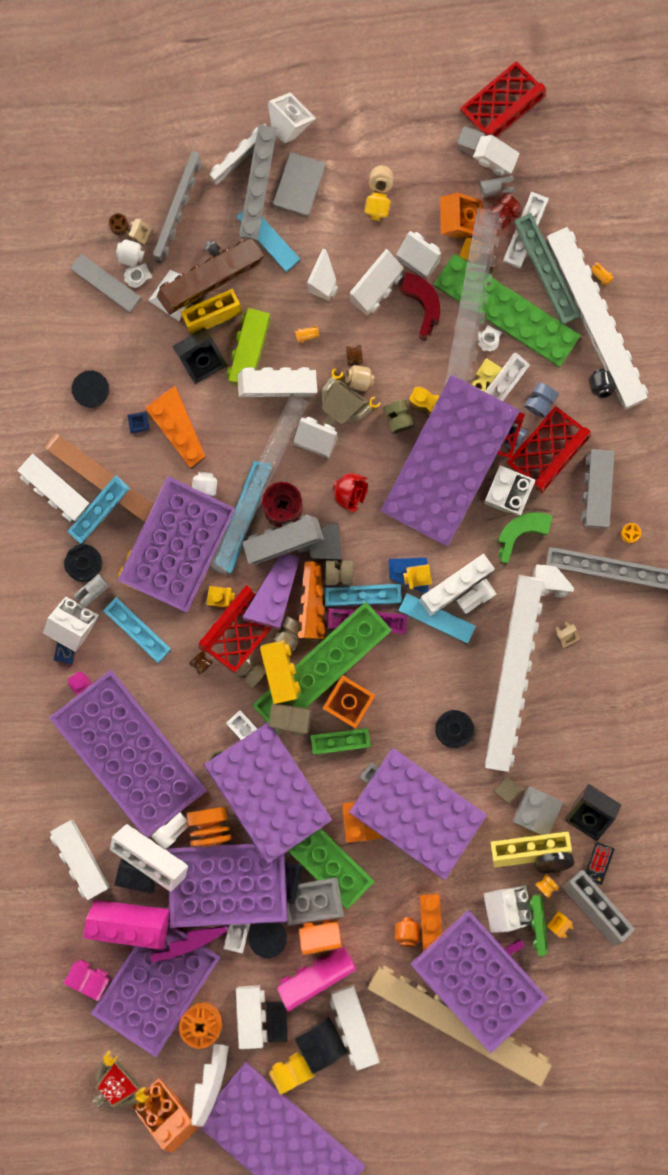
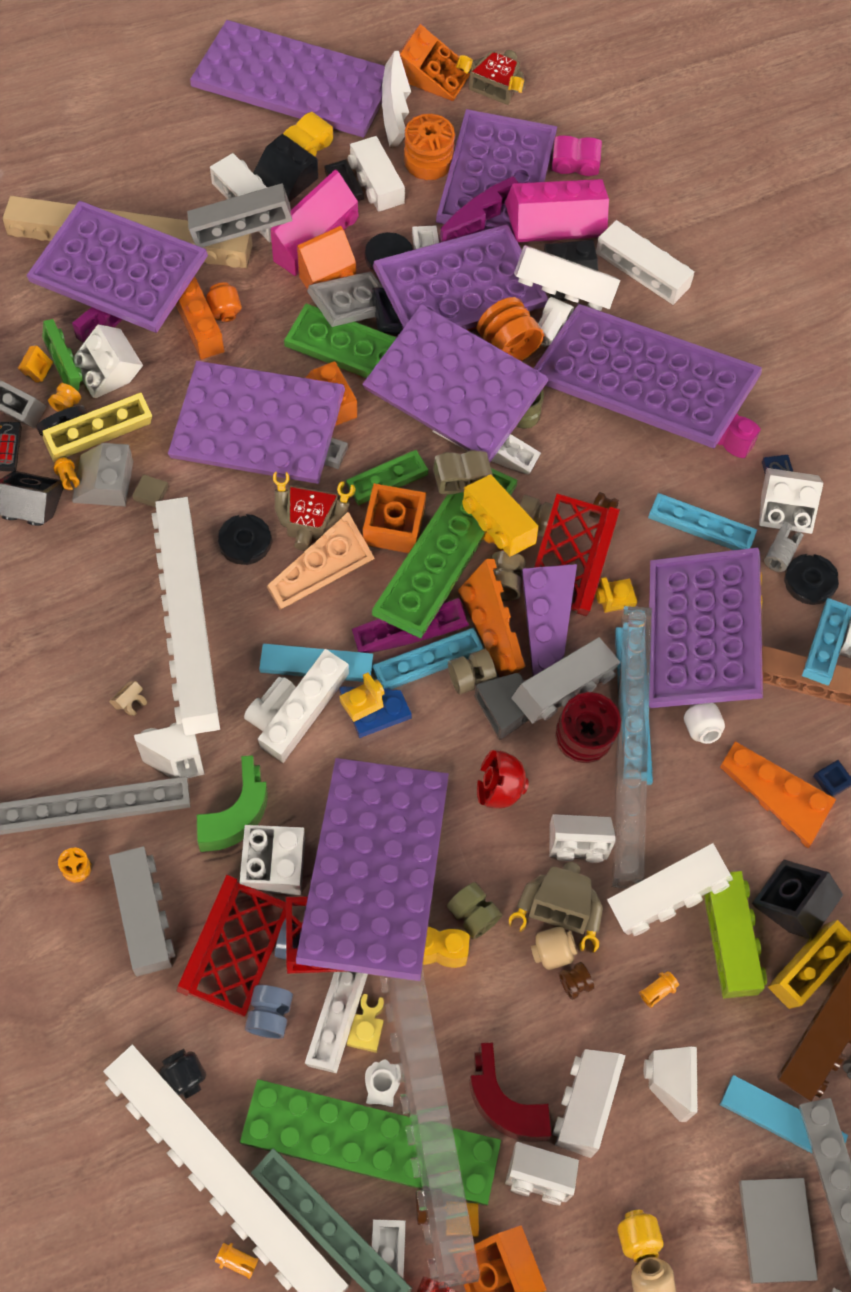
camera: 145 degrees right, 20 degrees down
(375, 990) = (239, 216): none -> light grey brick
(404, 729) = (309, 512): none -> torso
(405, 688) = (327, 560): none -> light nougat wing
(561, 821) = (65, 470): none -> light orange pin

